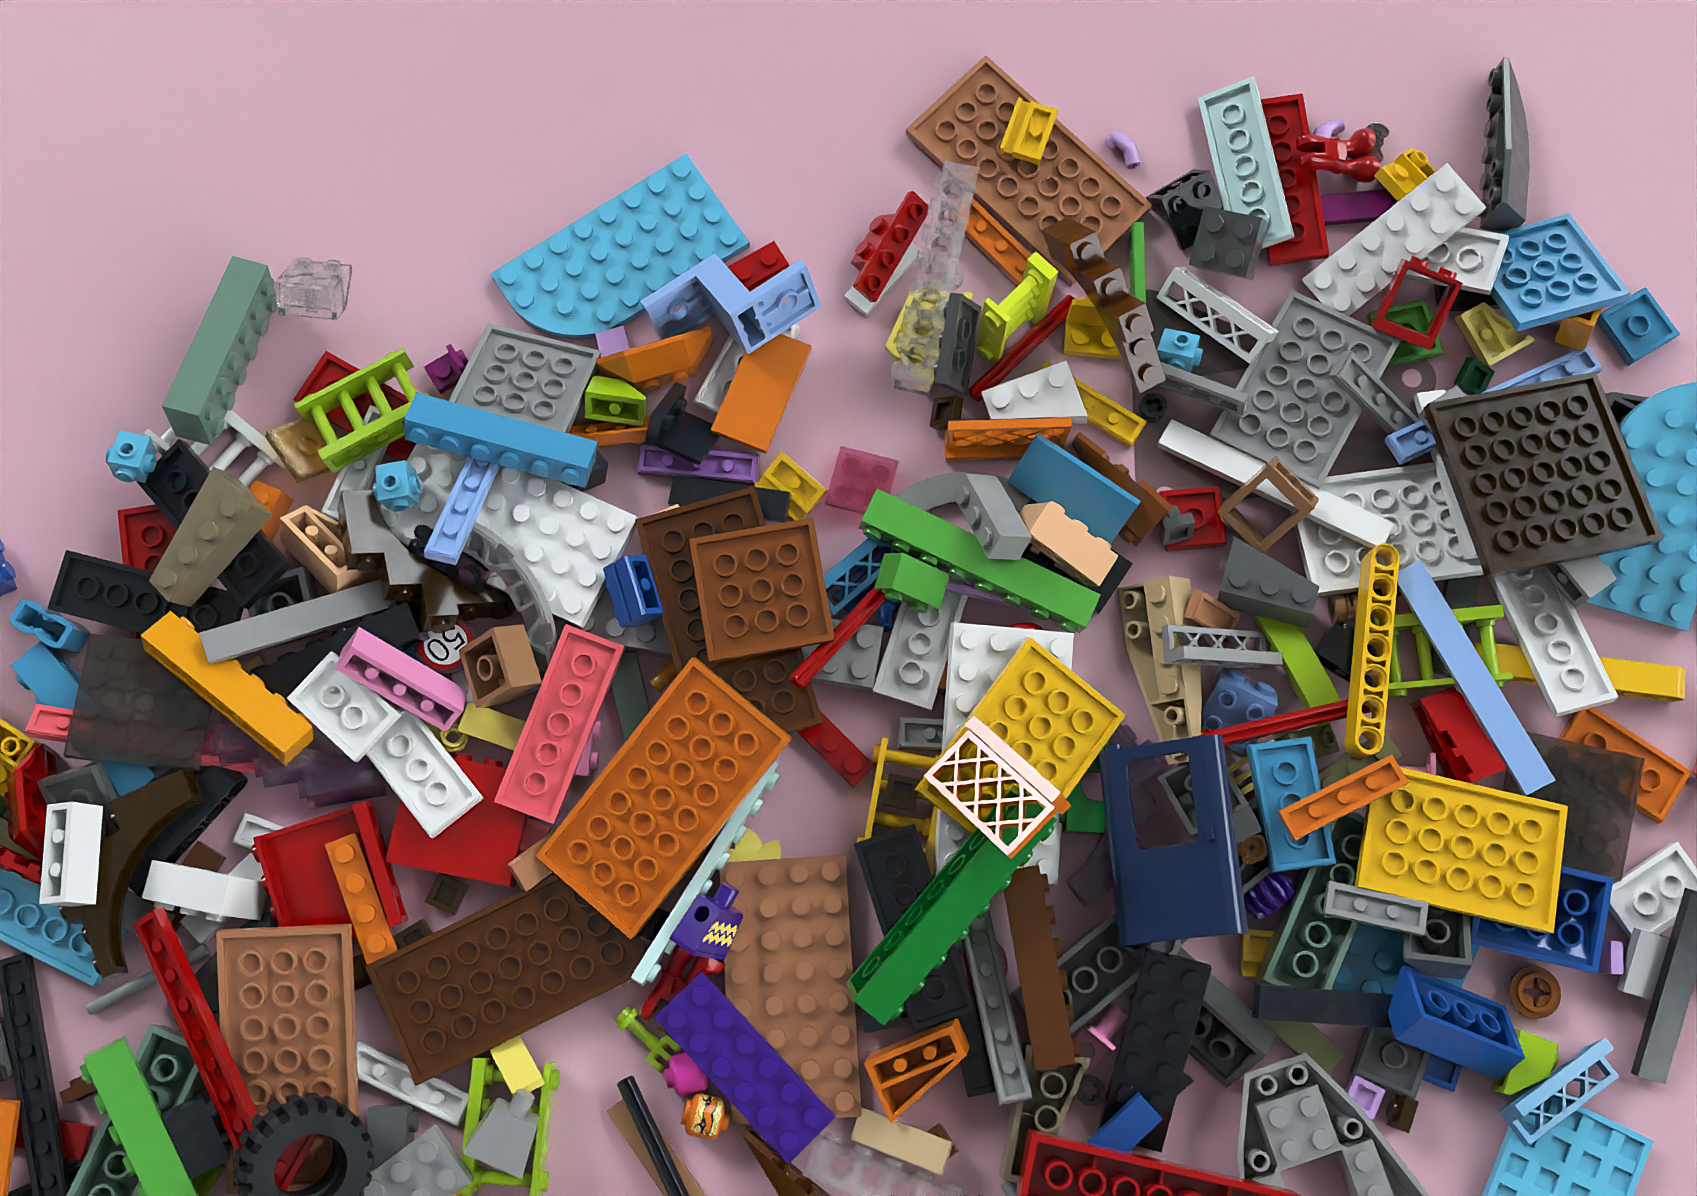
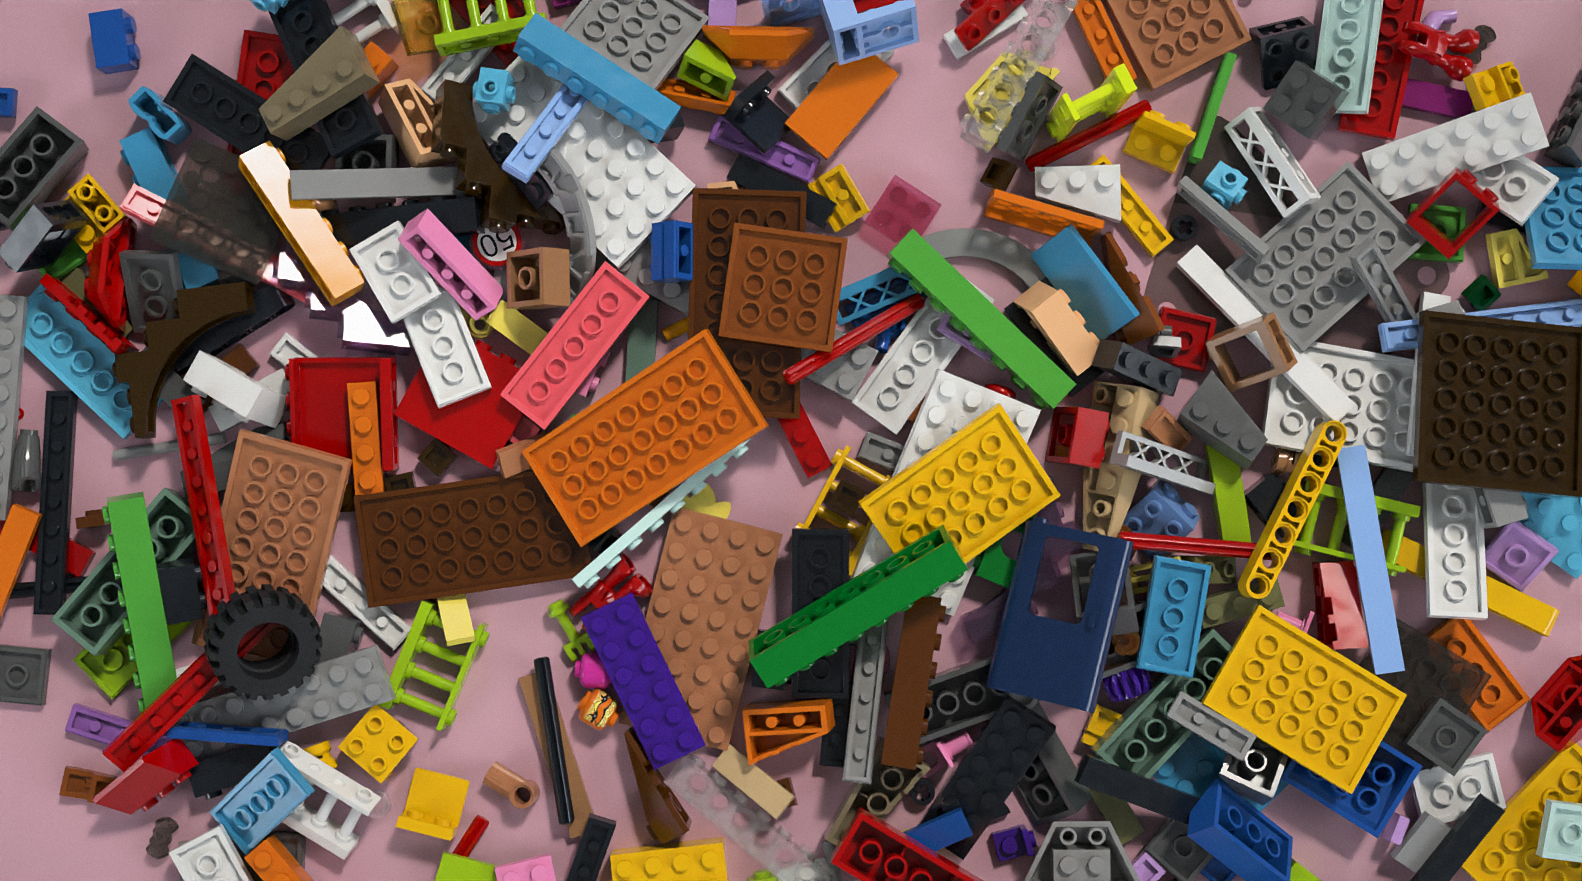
camera: 15 degrees right, 10 degrees up
(71, 854) = (135, 327): white brick -> none
(505, 1134) = (431, 671): light grey torso -> none
(709, 924) = (650, 556): dark purple torso -> none
(911, 582) = (916, 320): bright green brick -> none
(992, 517) = (1005, 285): light grey brick -> none
(1019, 772) = (949, 520): fence -> none
(1103, 282) = (1178, 116): reddish brown arch -> none
(1121, 650) = (1077, 437): none -> red slope
(1156, 557) = (1136, 367): none -> black brick
(1209, 1113) = (1014, 842): none -> dark purple bracket
(1342, 797) = (1217, 626): orange plate -> none
(1545, 982) = (1324, 847): dark orange gear -> none
(1618, 624) = (1518, 554): none -> lavender tile
(1624, 838) = (1445, 736): none -> dark grey plate

